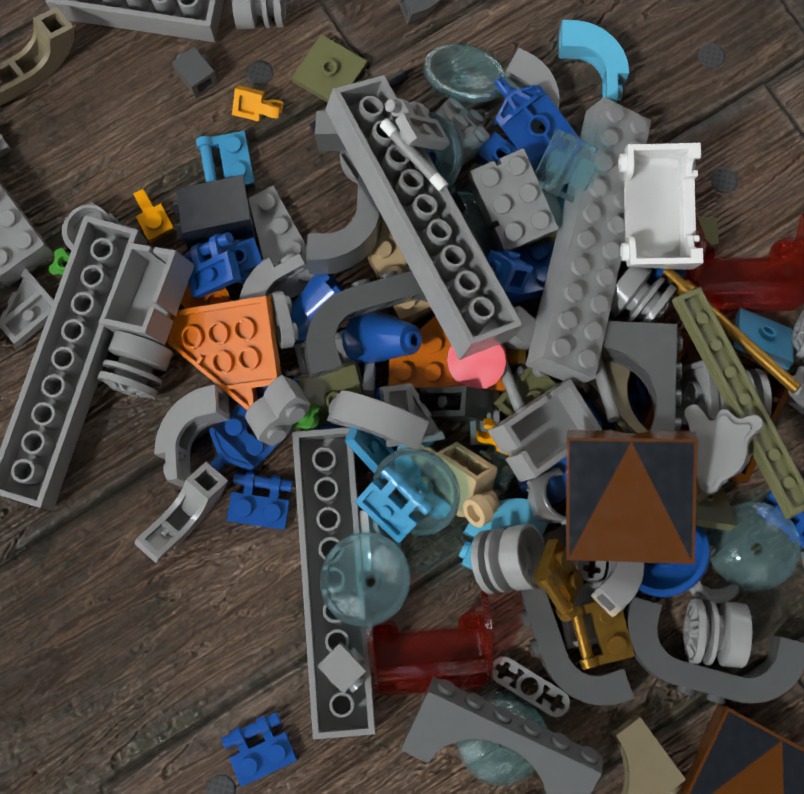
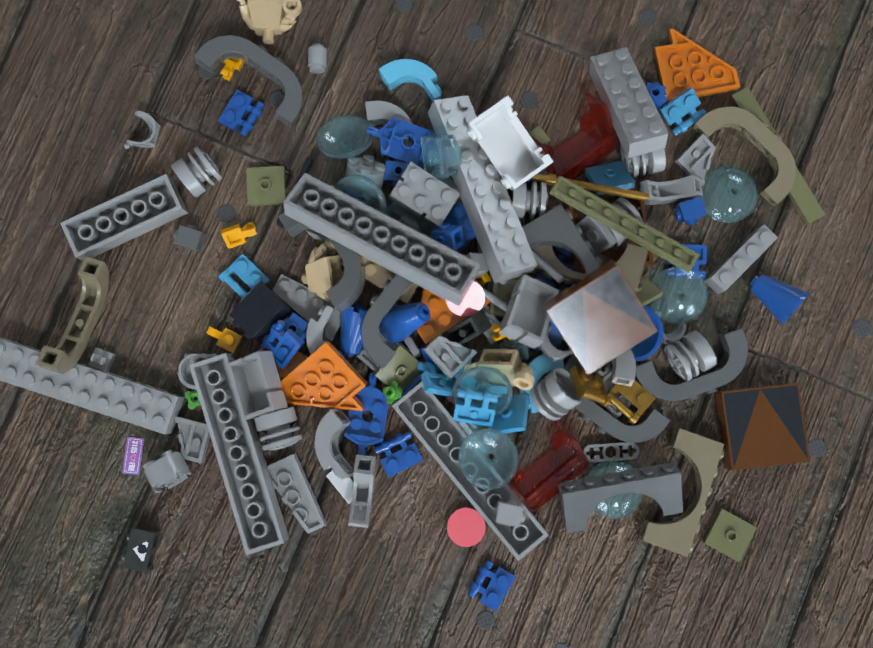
camera: 35 degrees left, 5 degrees up
(102, 461) = (295, 490): none -> light grey wing
(164, 491) = (344, 486): none -> white sticker
(277, 410) = (376, 400): light grey brick -> none
(278, 652) = (466, 527): none -> coral tile
(285, 330) = (350, 353): light grey plate -> none
(325, 210) = (323, 271): none -> tan torso
(377, 418) = (435, 368): light grey arch -> none
(414, 155) = (355, 209): light grey bar -> none
(416, 125) = (345, 191): light grey plate -> none
(435, 551) = (514, 417): none -> dark azure plate
(721, 445) = (629, 256): light grey tile -> none

